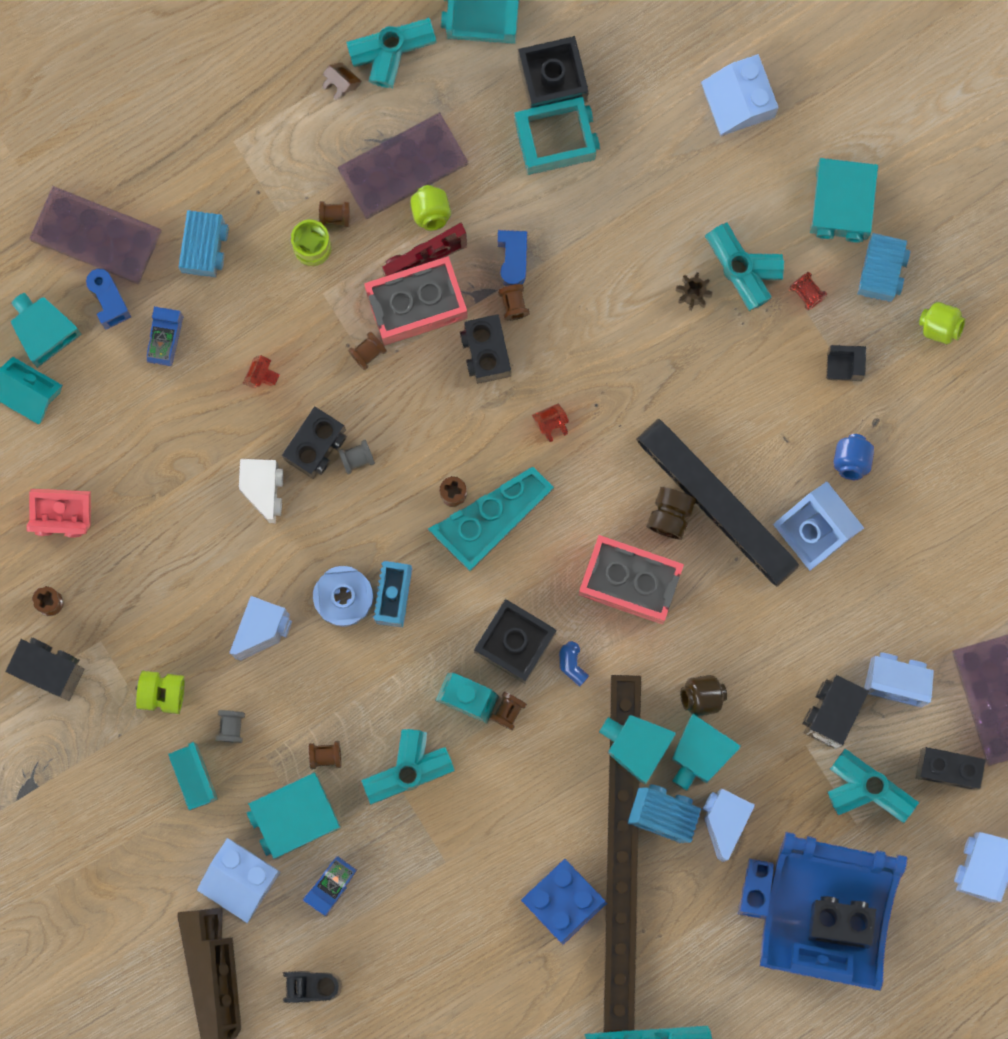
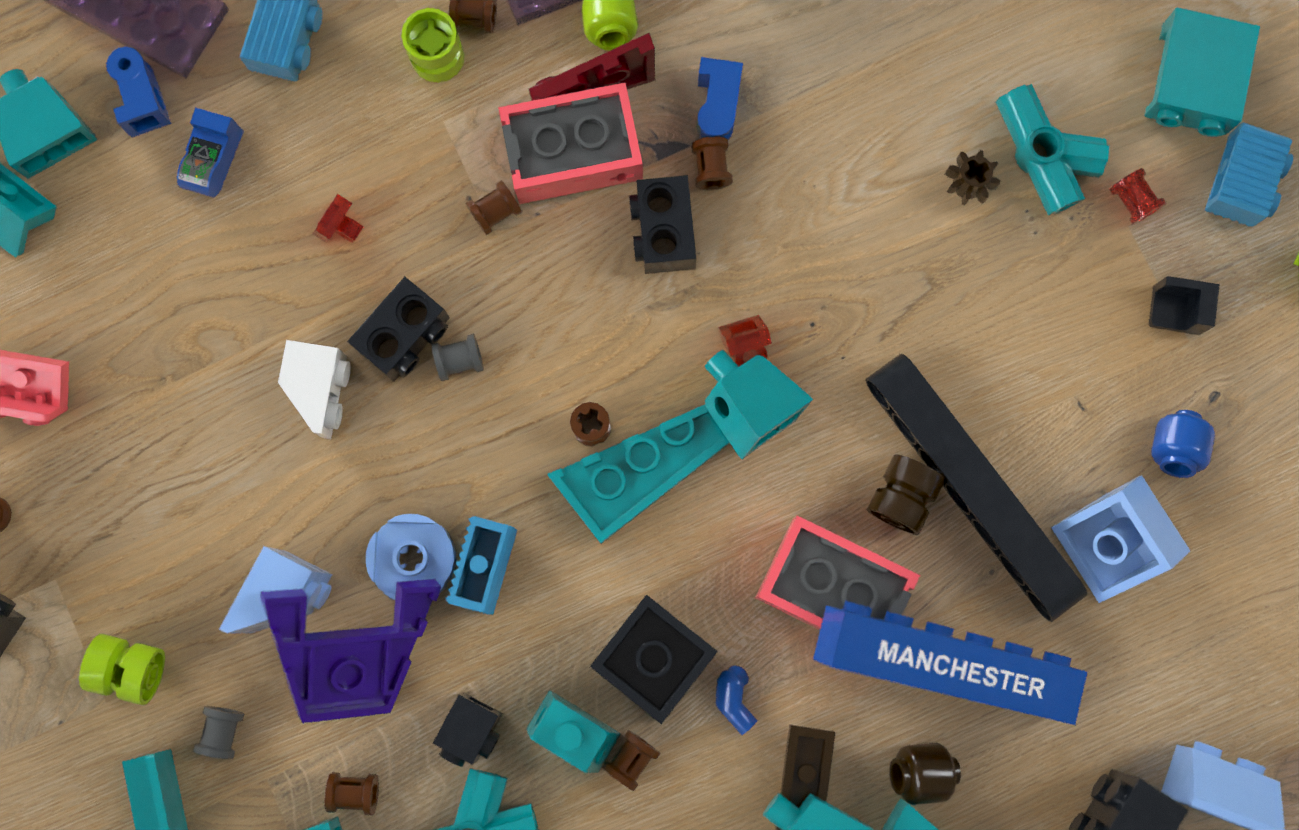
camera: 10 degrees right, 0 degrees up
(314, 672) = (349, 669): none -> dark purple wing
(397, 705) = (468, 731): none -> black brick
(560, 462) = (752, 401): none -> teal torso
(710, 619) = (950, 665): none -> blue brick

